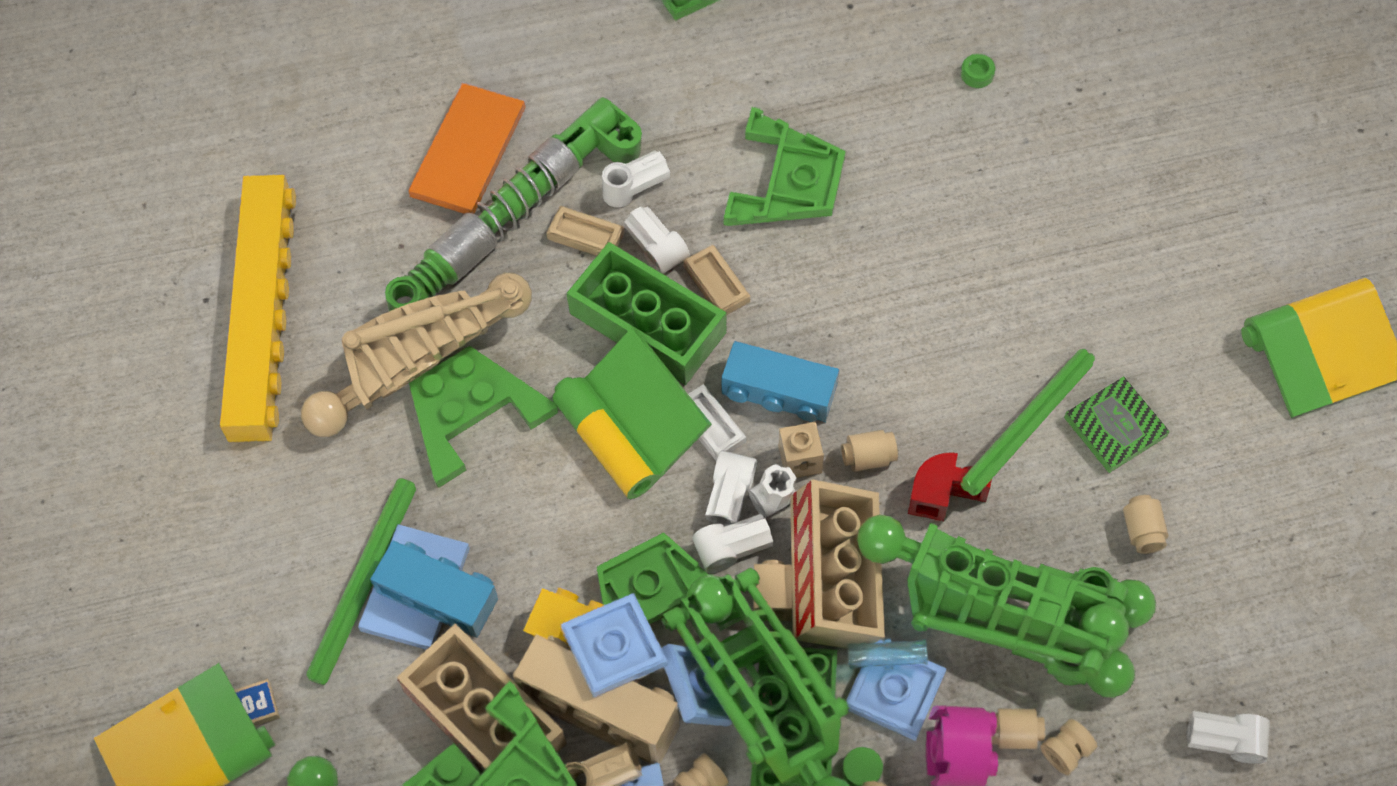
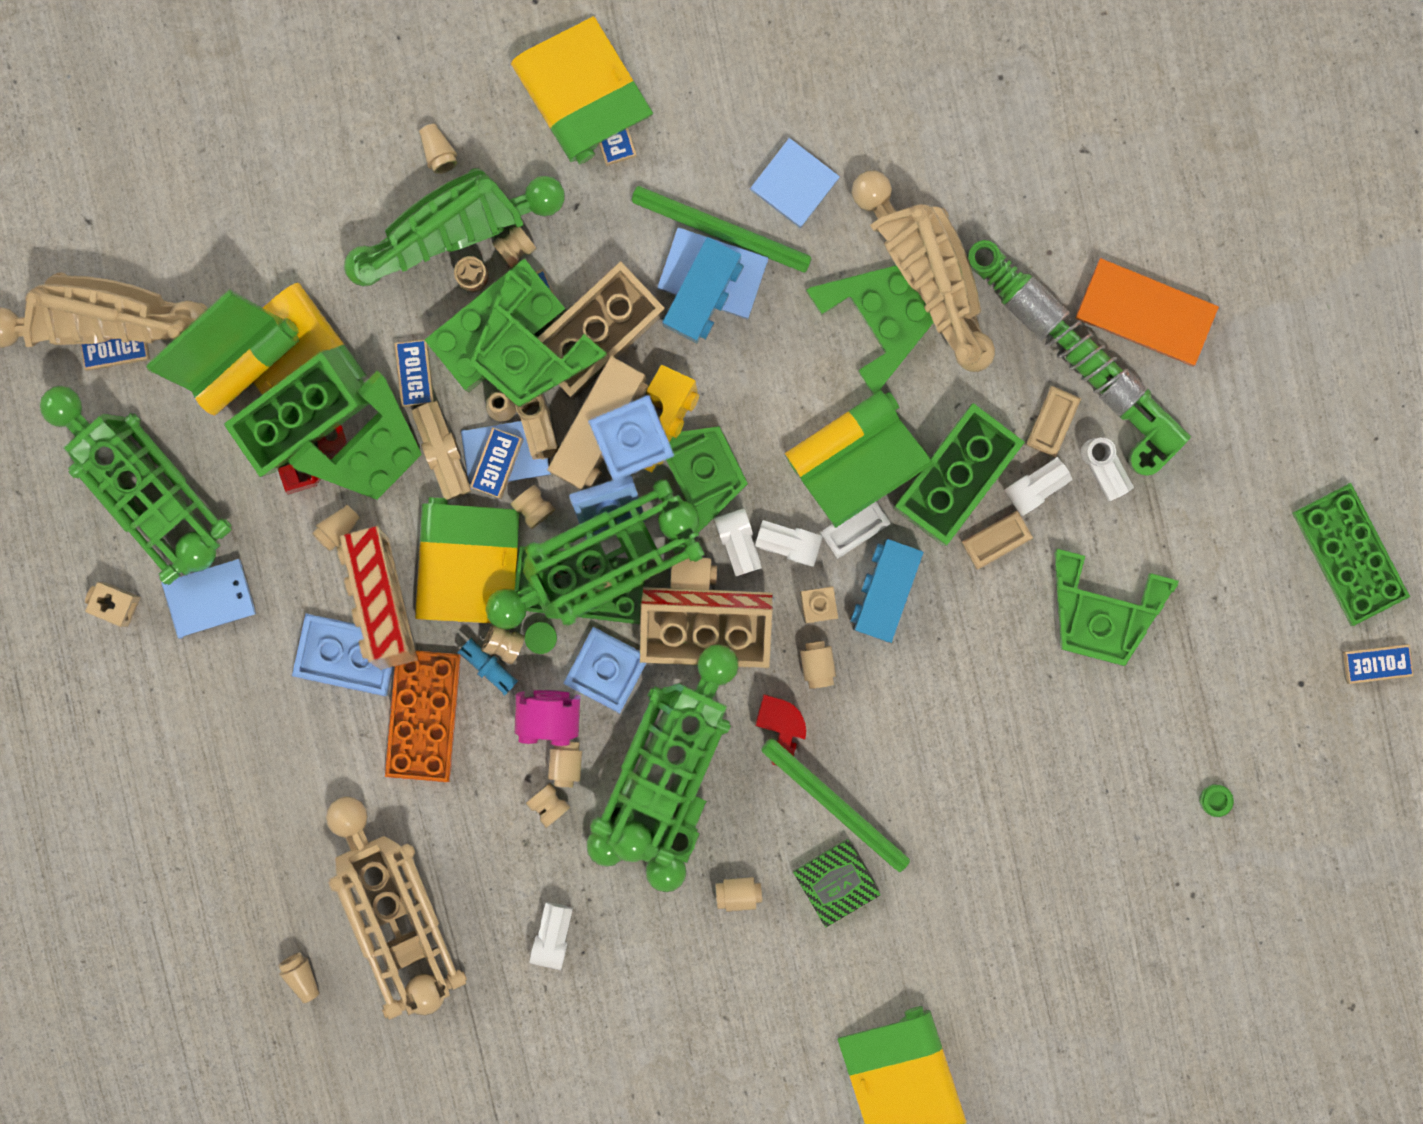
camera: 90 degrees right, 25 degrees up
(257, 310) = (987, 125): yellow brick -> none
(311, 502) = (794, 183): none -> light blue tile
(773, 490) = (779, 579): white piece -> none
(888, 653) = (629, 665): clear light blue pin -> none

